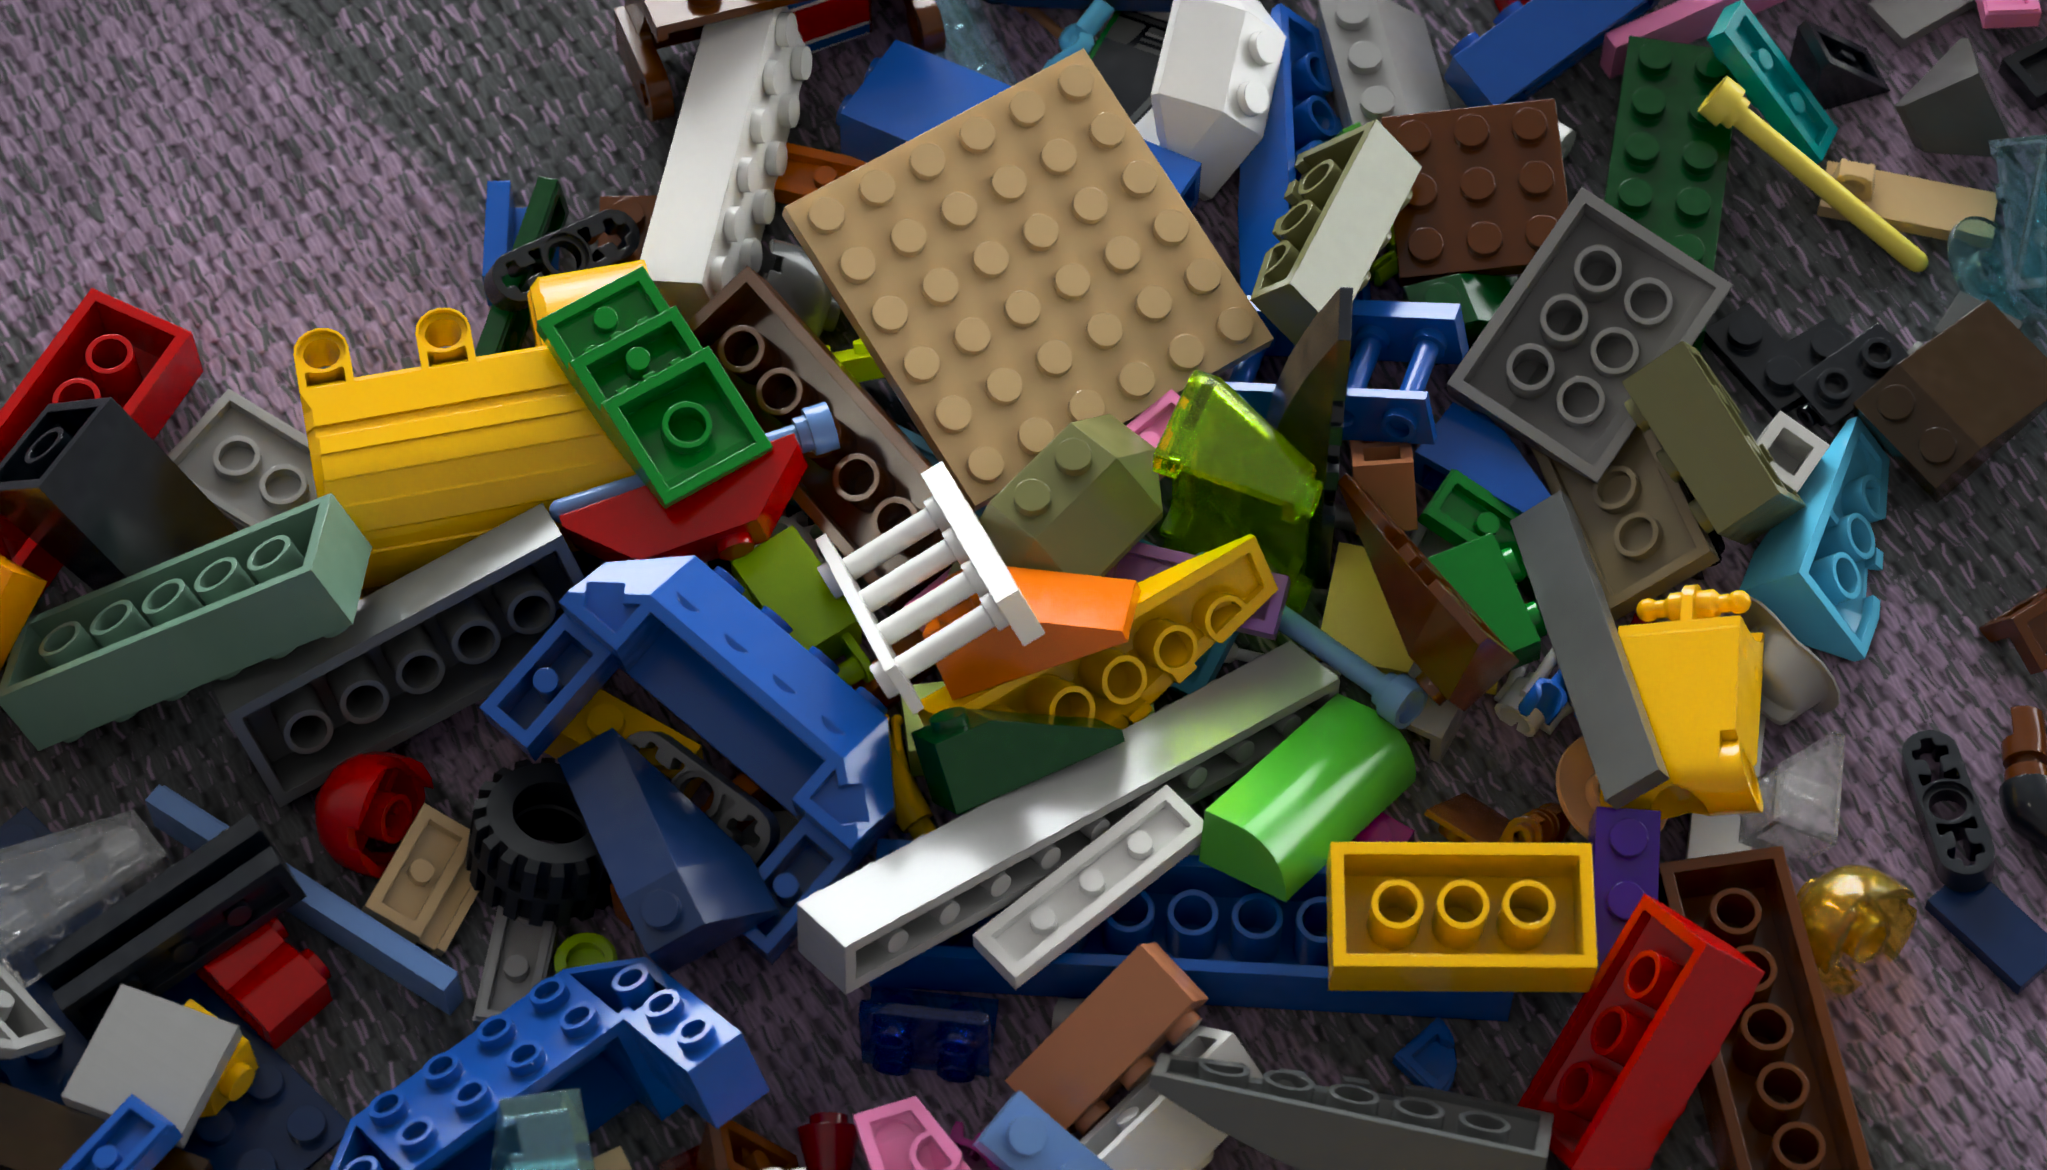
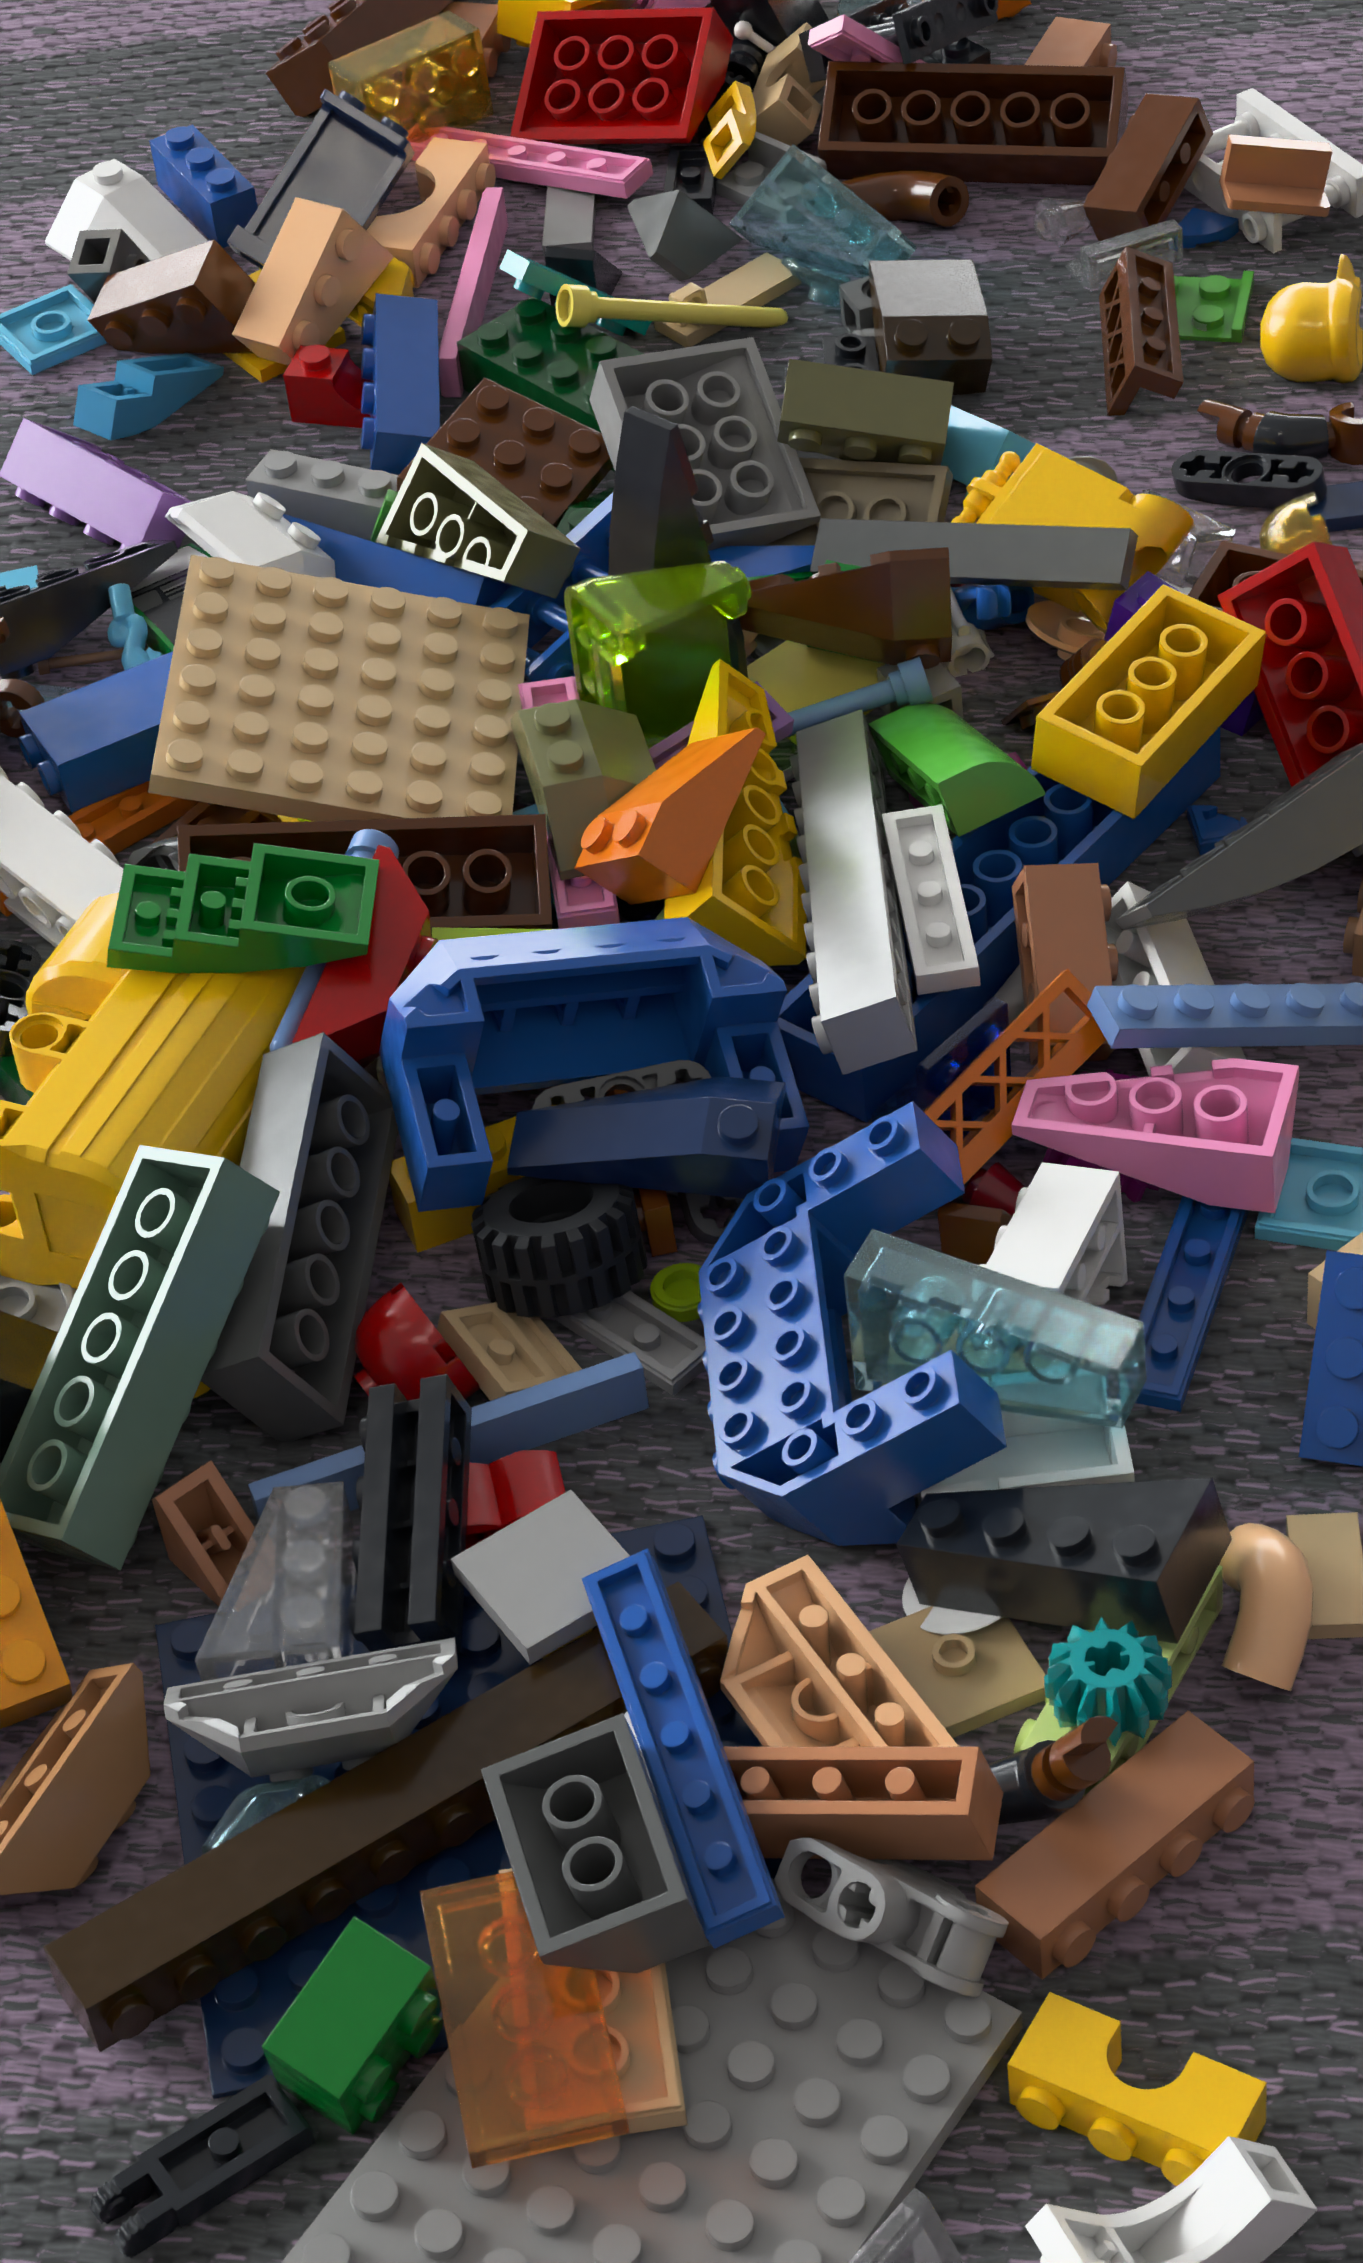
camera: 50 degrees left, 15 degrees down
(109, 779) = (203, 1529): none -> nougat slope
(850, 1092) = (1062, 1060): none -> orange fence
(981, 574) = (577, 786): white fence -> none
(987, 753) = (771, 888): dark green slope -> none

